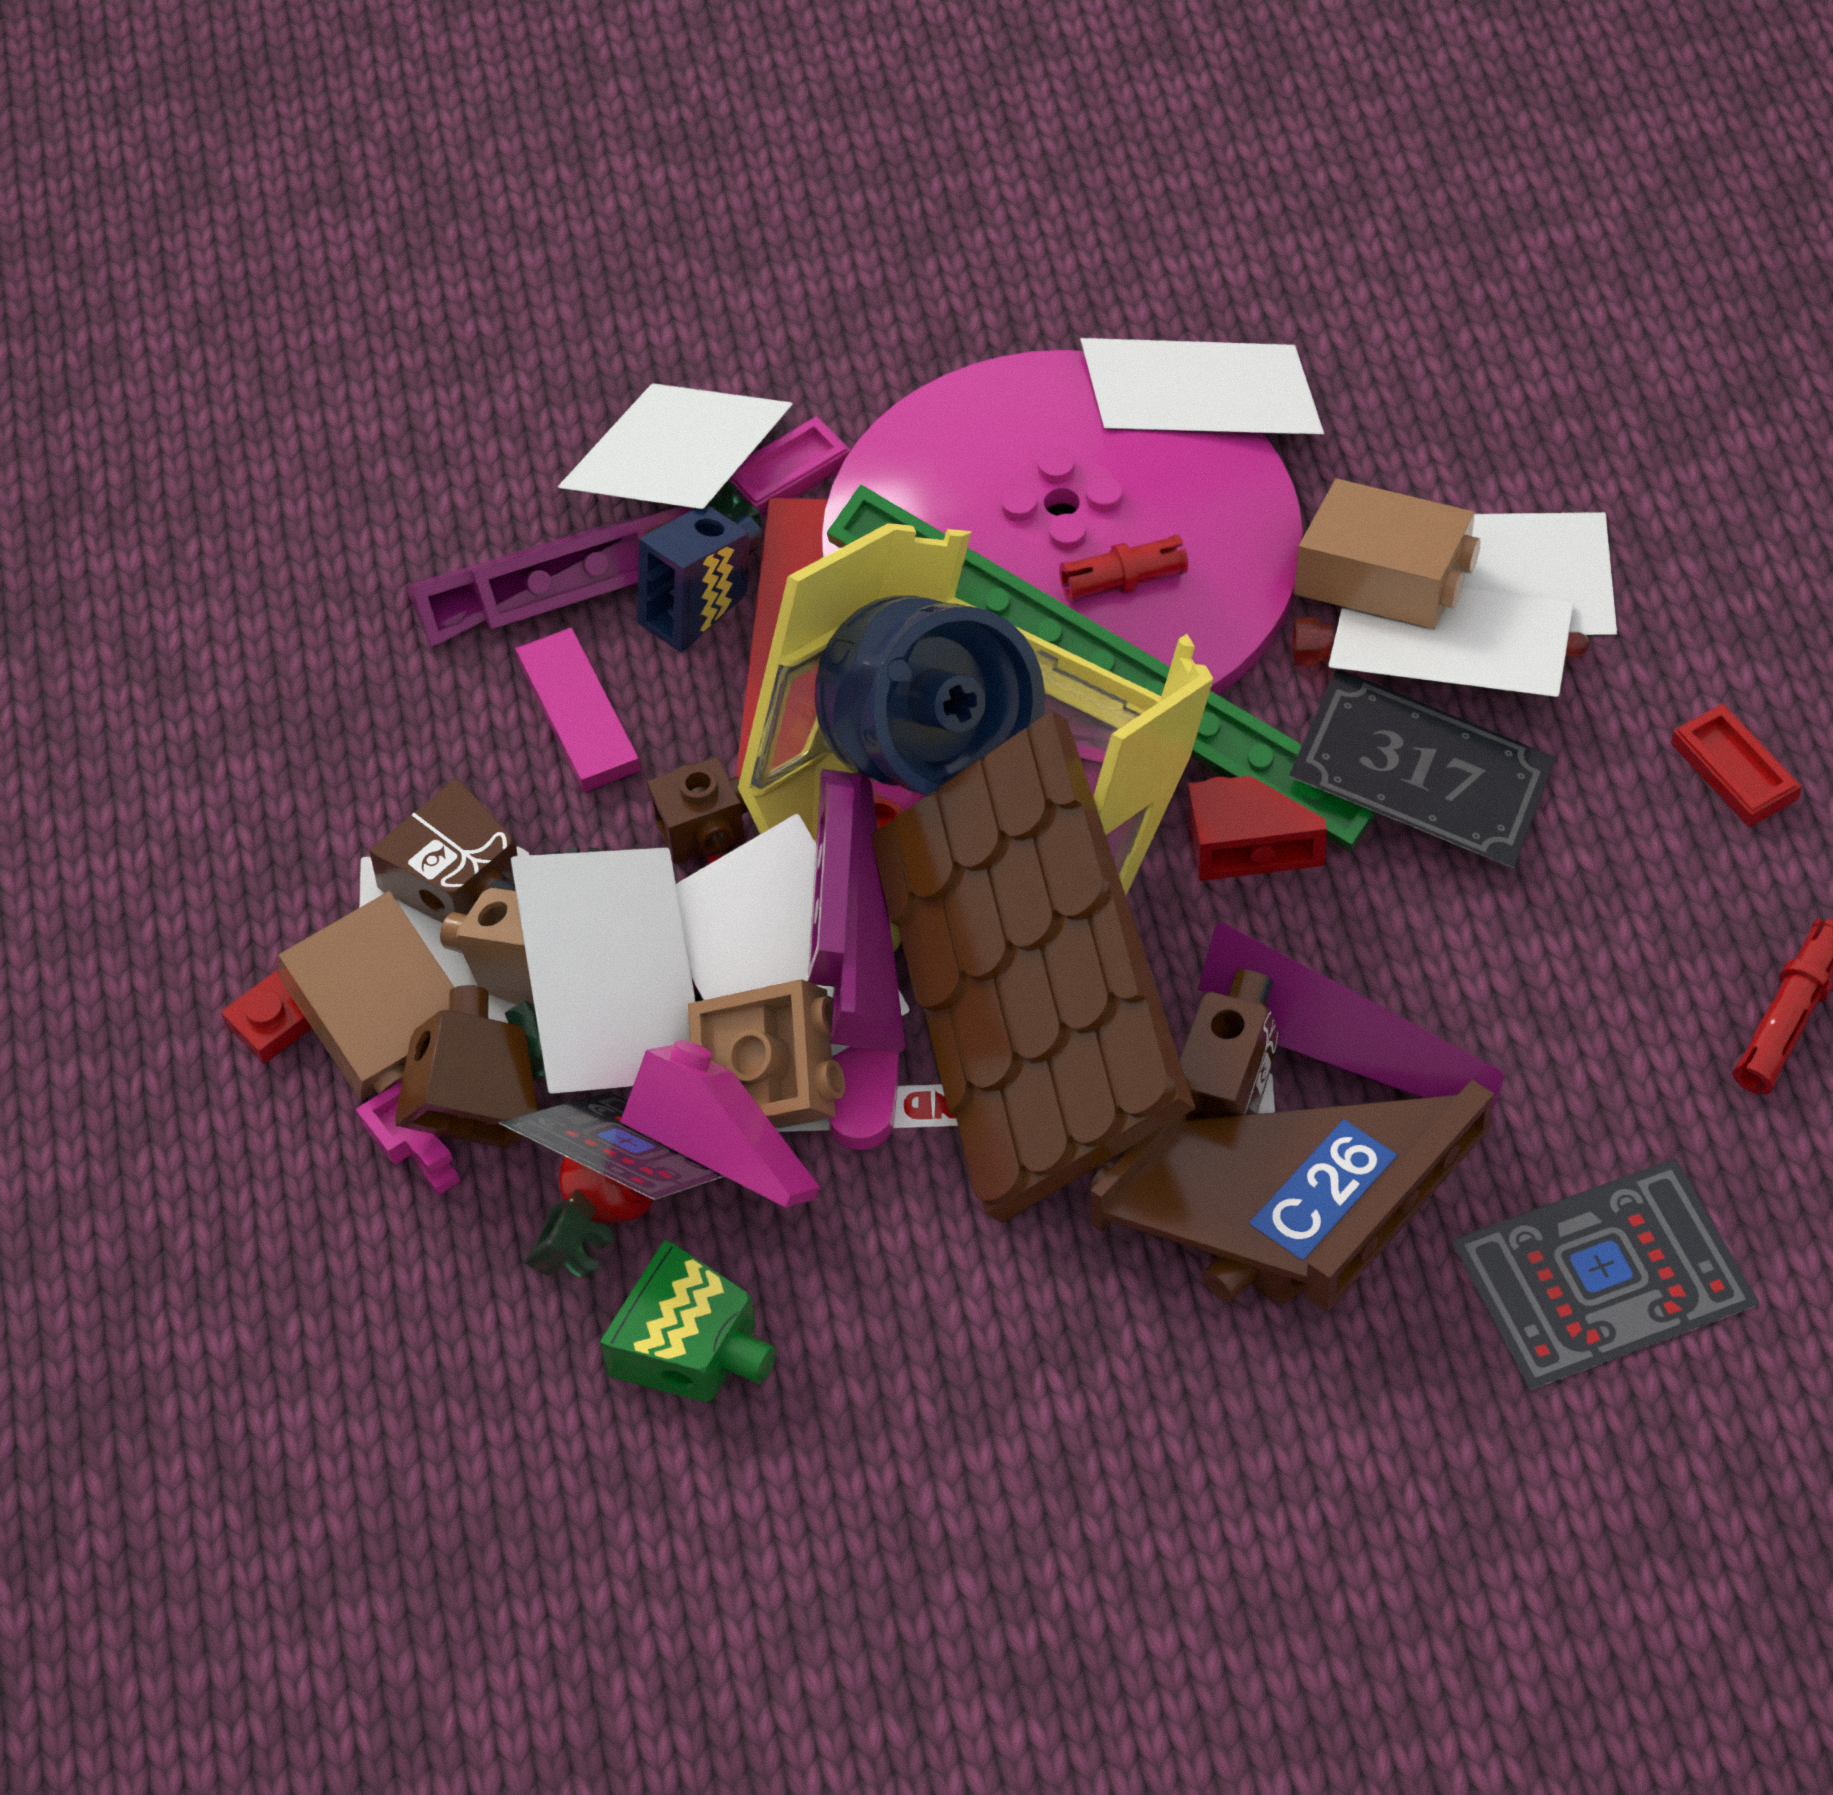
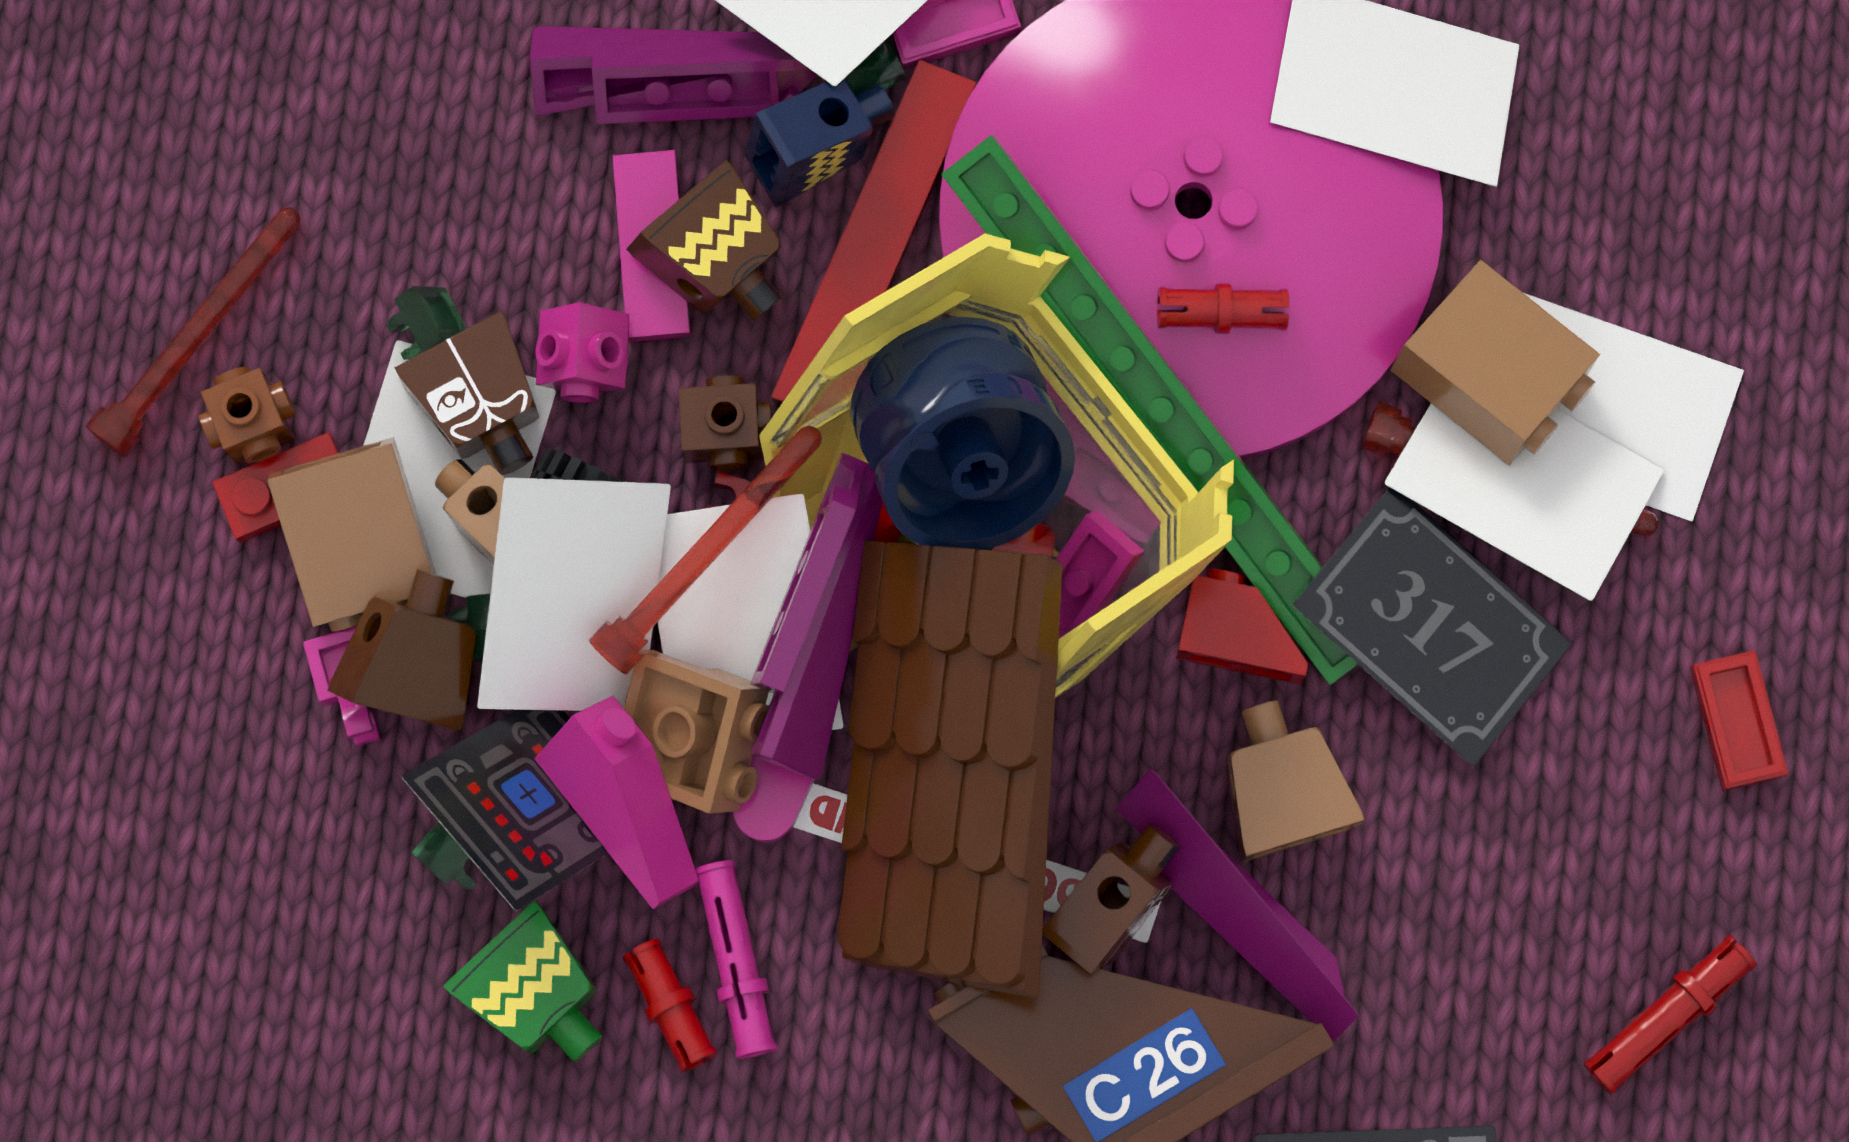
camera: 20 degrees right, 25 degrees up
(113, 995) = (120, 422): none -> clear red piece
(237, 940) = (258, 433): none -> dark orange brick
(382, 812) = (429, 316): none -> clear green tile
(543, 793) = (582, 351): none -> dark pink brick
(634, 677) = (712, 245): none -> reddish brown torso
(670, 993) = (624, 638): none -> clear red piece
(833, 1305) = (669, 1005): none -> red pin
(920, 1299) = (741, 985): none -> dark pink pin
(1354, 930) = (1286, 787): none -> medium nougat torso

